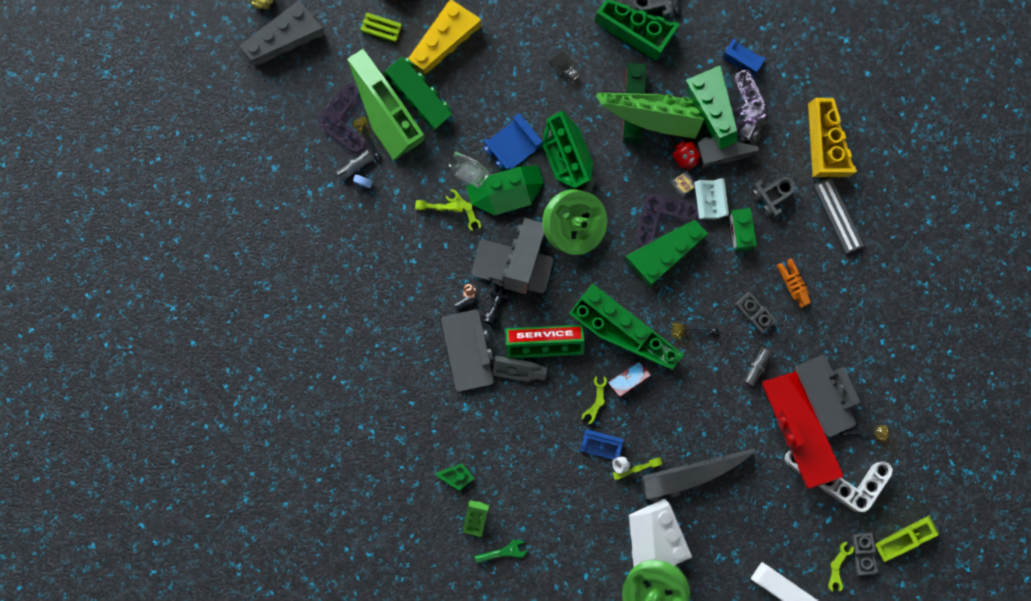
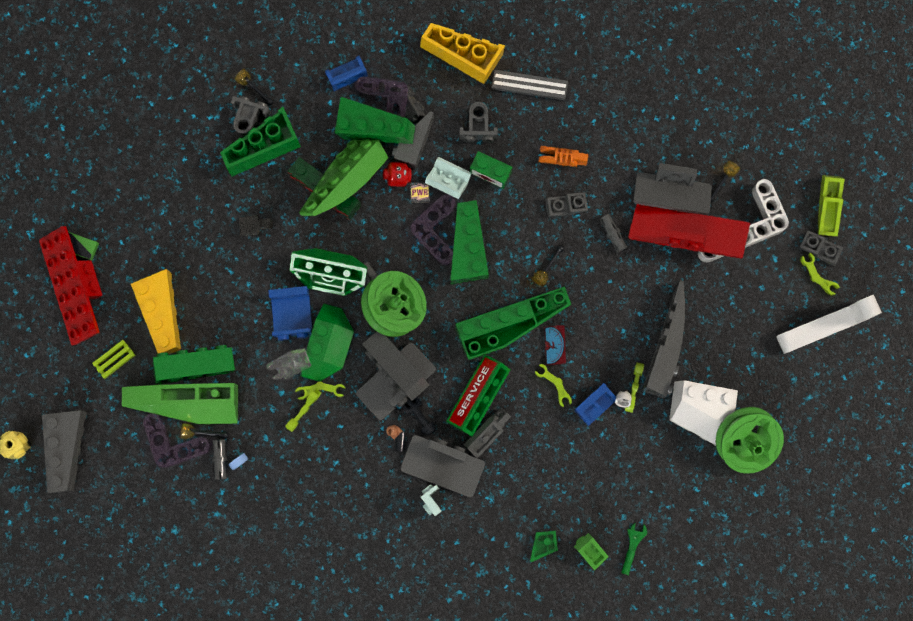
camera: 50 degrees left, 0 degrees up
(427, 360) = (430, 505): none -> light aqua bracket

